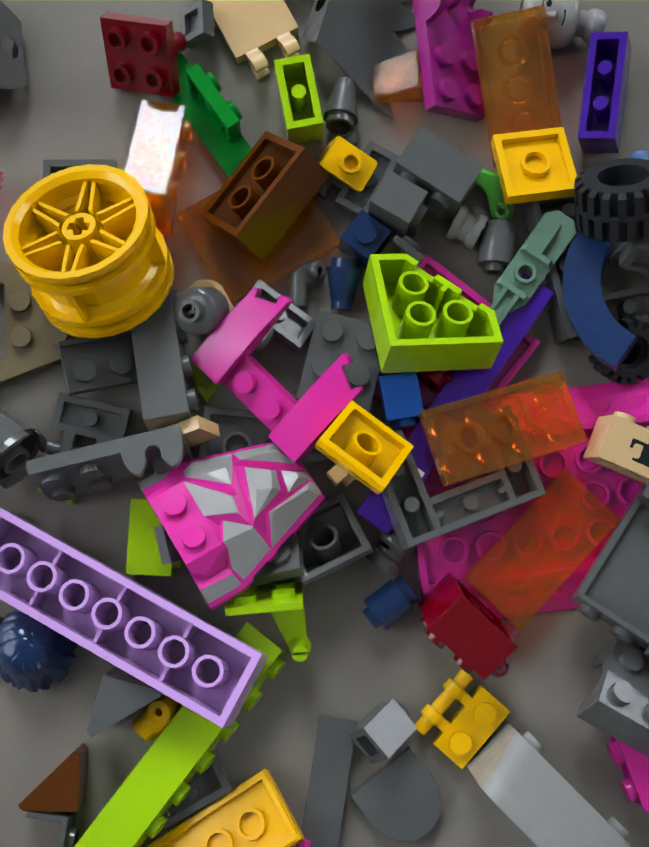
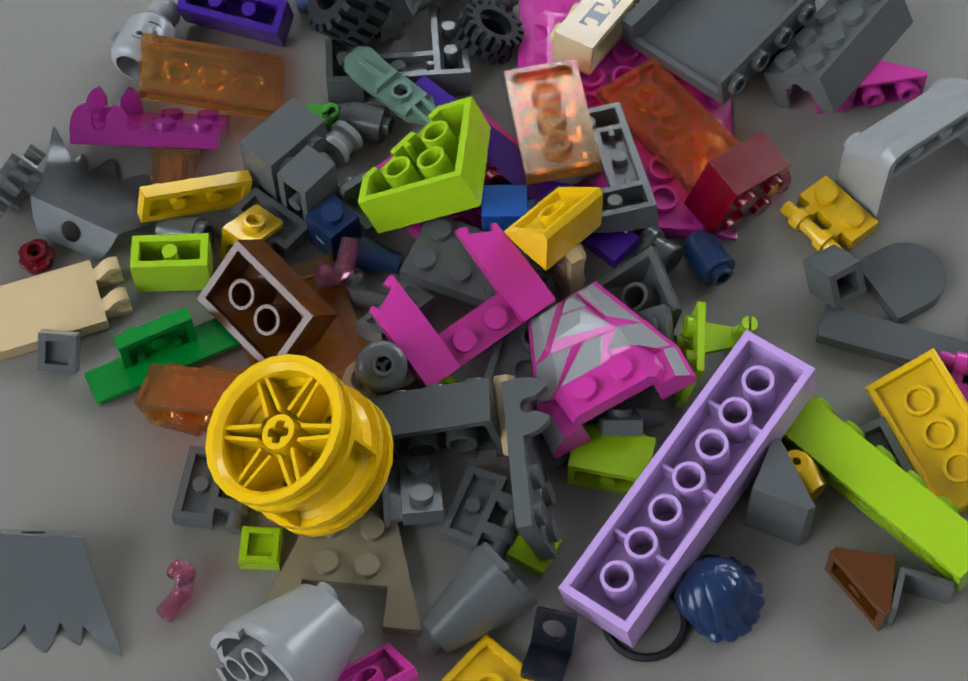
camera: 75 degrees left, 25 degrees down
(142, 53) = (85, 394): dark red plate -> none
(318, 256) = (342, 267): none -> clear pink arm
(375, 100) = (192, 195): none -> yellow plate
(534, 165) = (294, 70): yellow plate -> none
(586, 304) = (442, 45): dark blue tile -> none

